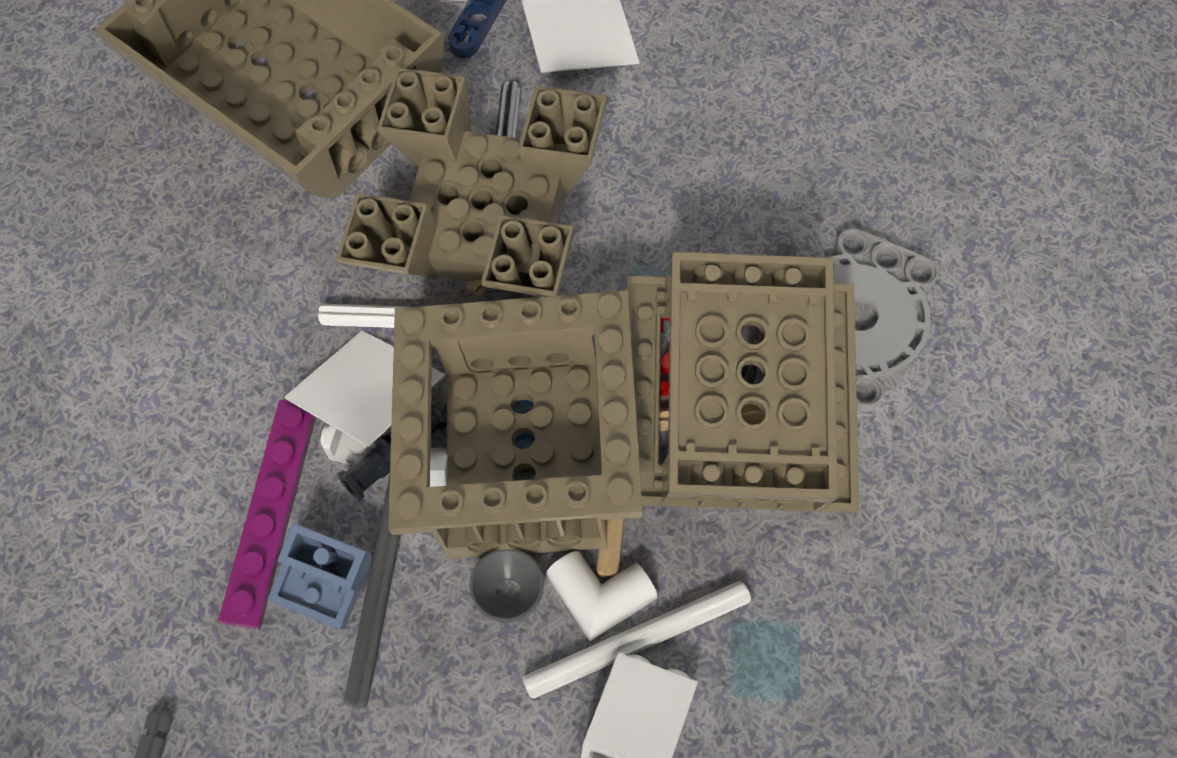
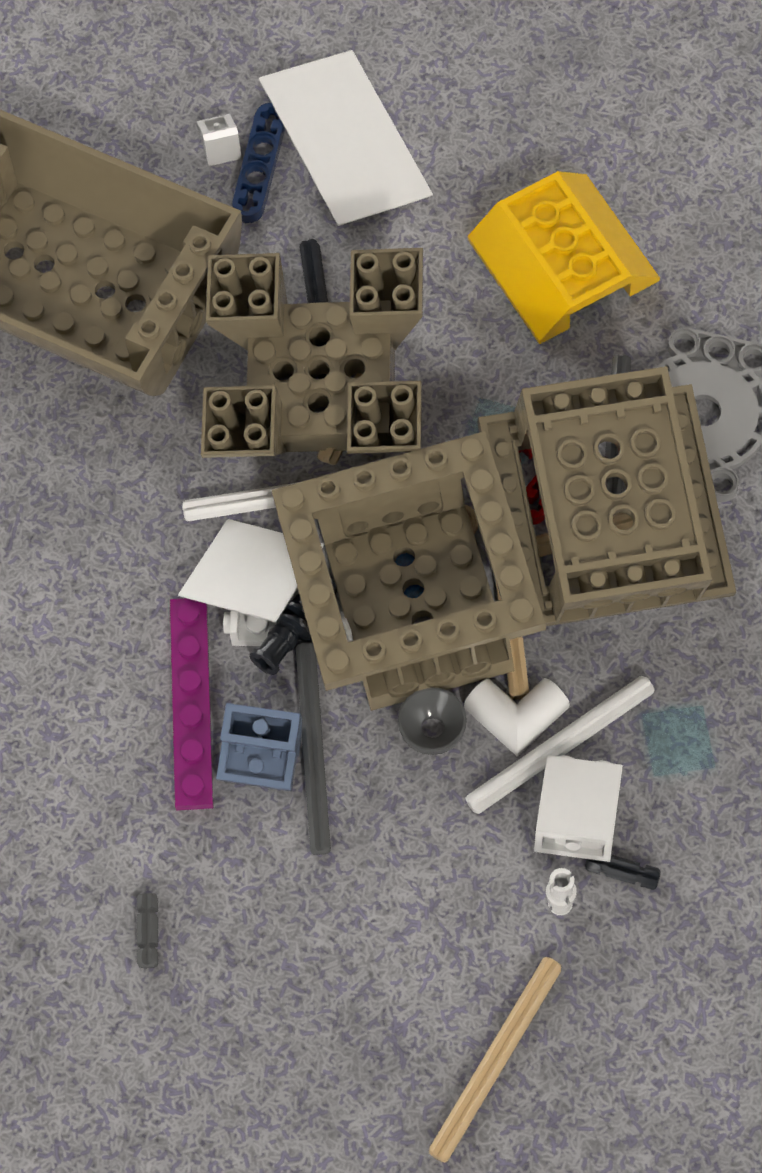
camera: 10 degrees left, 0 degrees up
(746, 133) = (558, 251): none -> yellow slope

